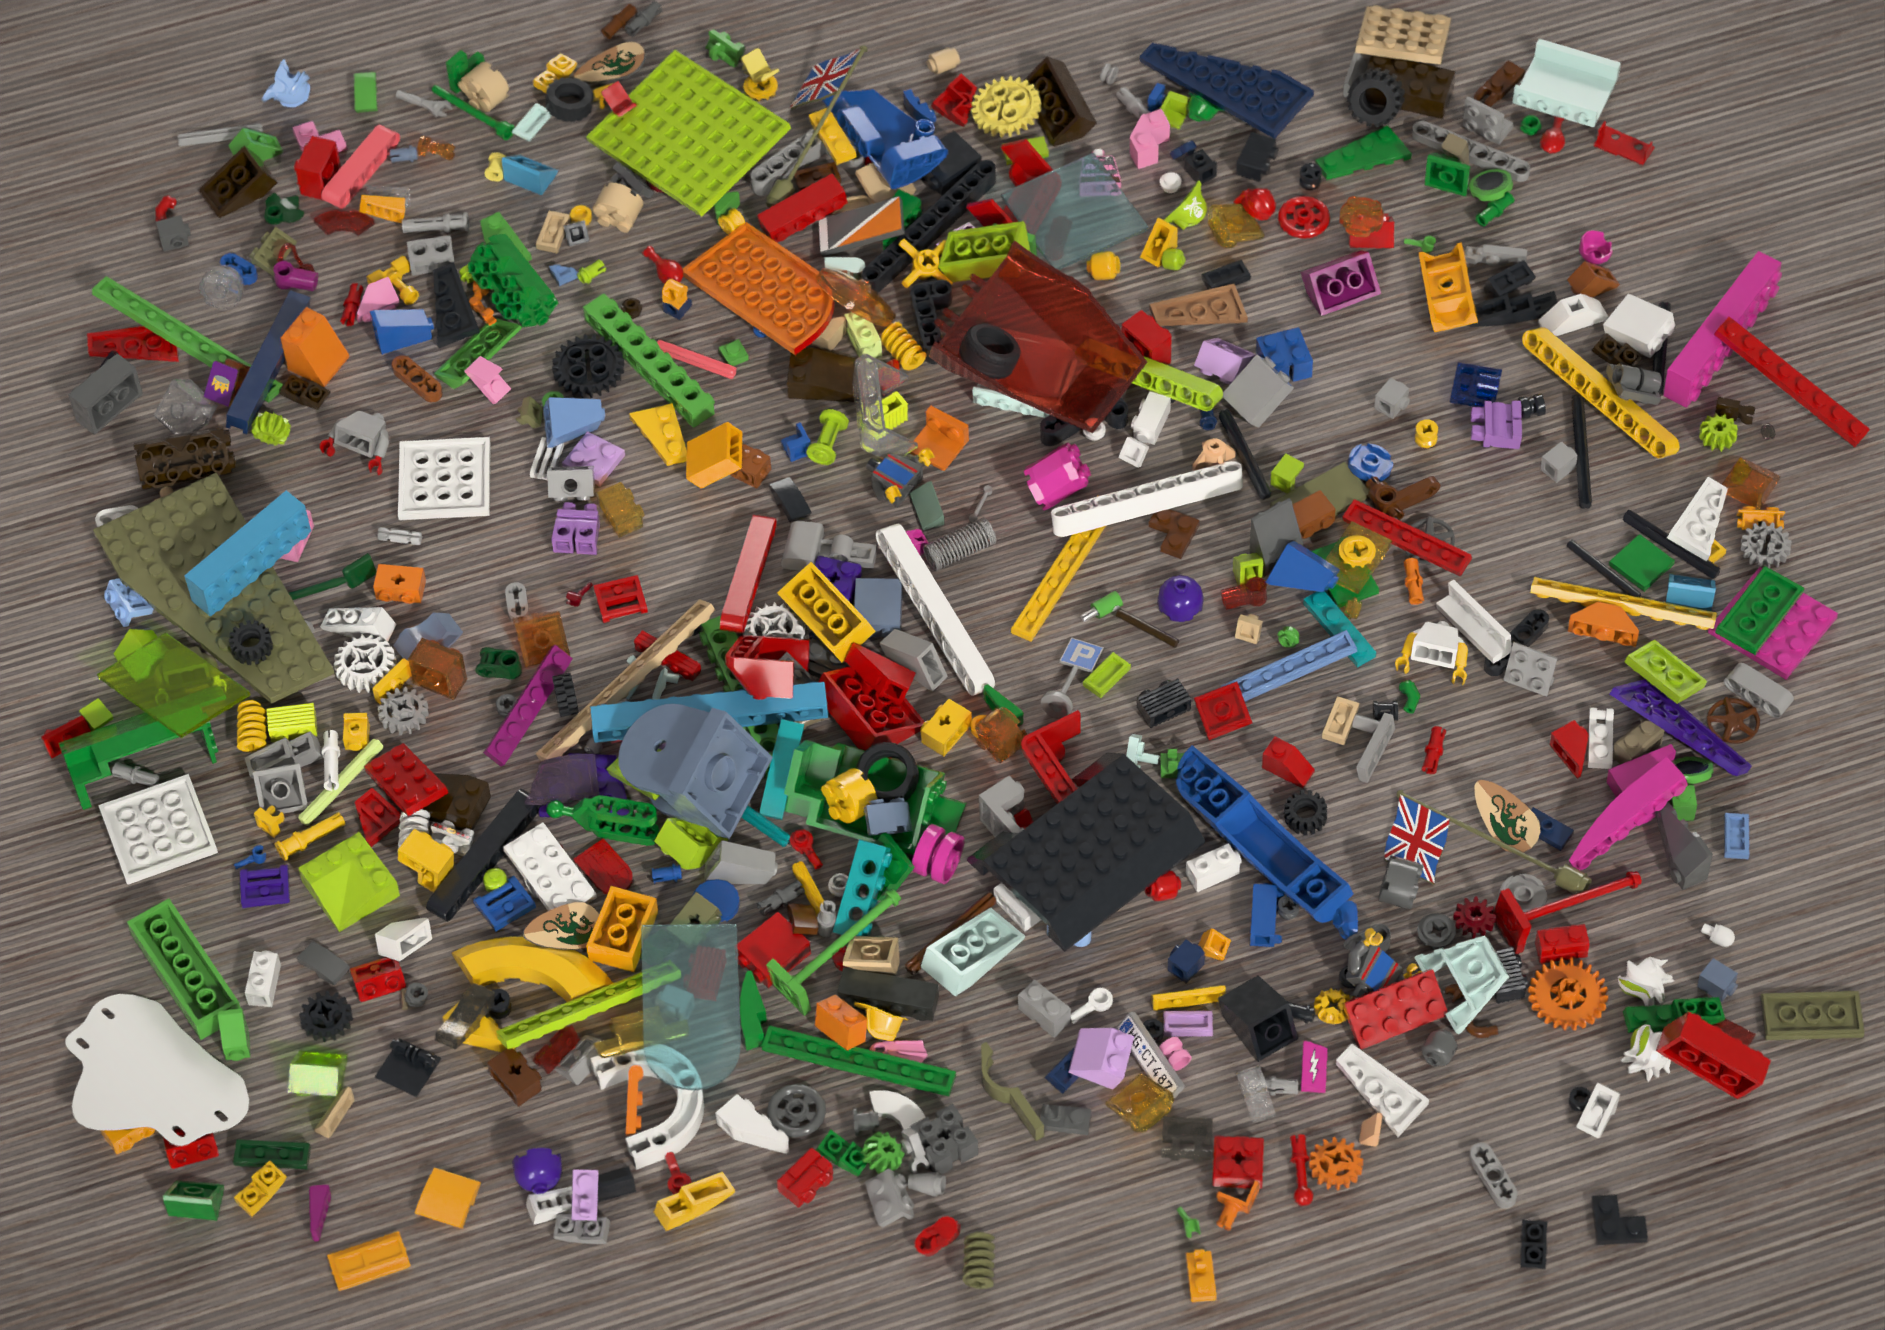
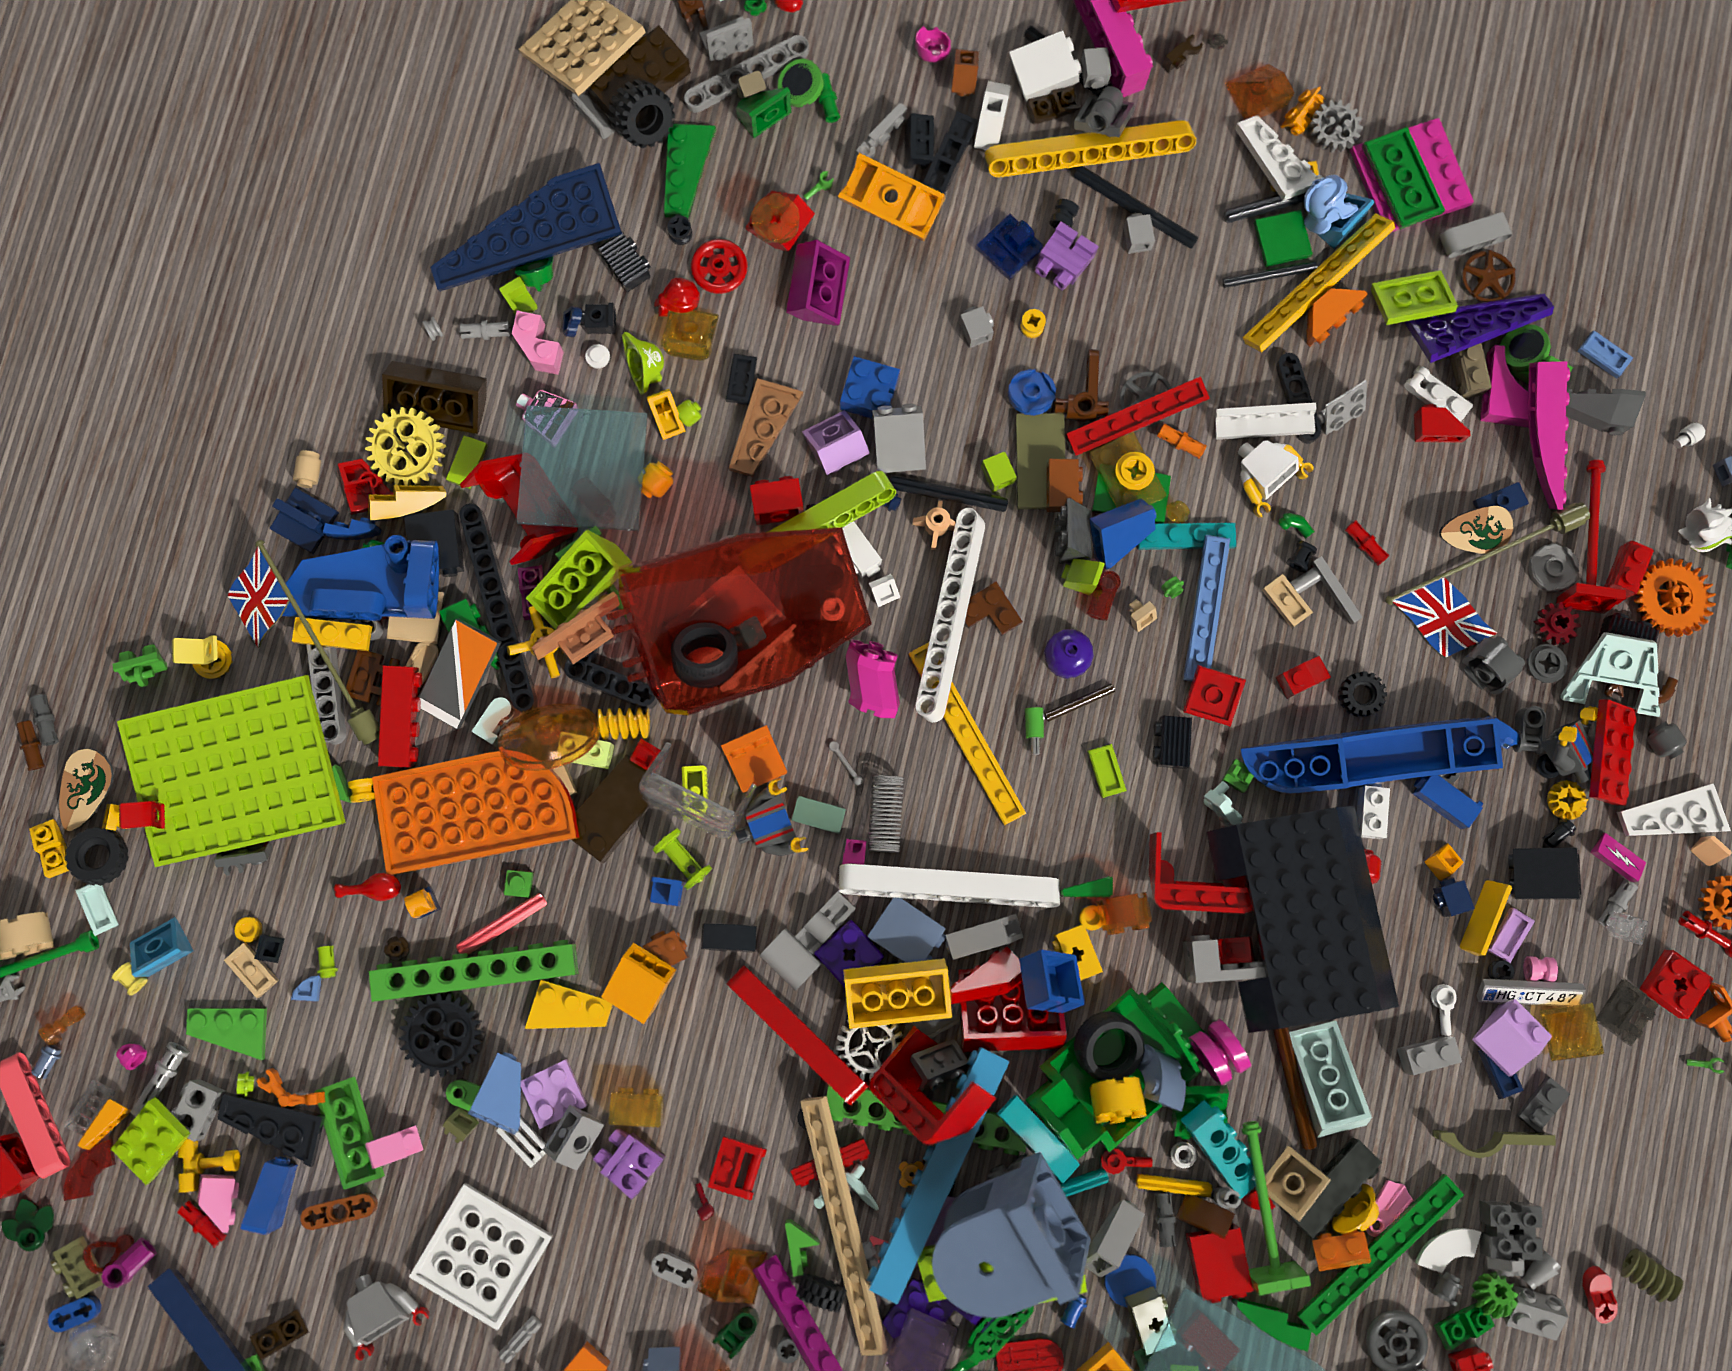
camera: 65 degrees left, 25 degrees up
(313, 348) = (238, 1303): orange slope -> none
(391, 238) = (150, 1141): none -> lime plate
(442, 199) = (132, 1057): none -> dark pink tile
(516, 285) = (301, 1052): green brick -> none
(590, 664) = (797, 1239): none -> bright green slope
(617, 207) = (270, 891): tan brick -> none
(904, 77) = (302, 519): none -> dark blue bracket
(908, 701) = (1051, 981): none -> blue piece
(945, 272) = (581, 633): none -> nougat bracket
(963, 124) = (404, 501): none -> yellow slope
(1026, 369) = (747, 633): none -> clear smoke slope
(1079, 656) = (1071, 782): light grey piece -> none
(1156, 97) = (494, 303): blue plate -> none
(1664, 355) = (1095, 67): none -> light grey brick
(1689, 561) = (1326, 203): none -> light blue helmet
(1718, 432) = (1192, 89): lime gear -> none

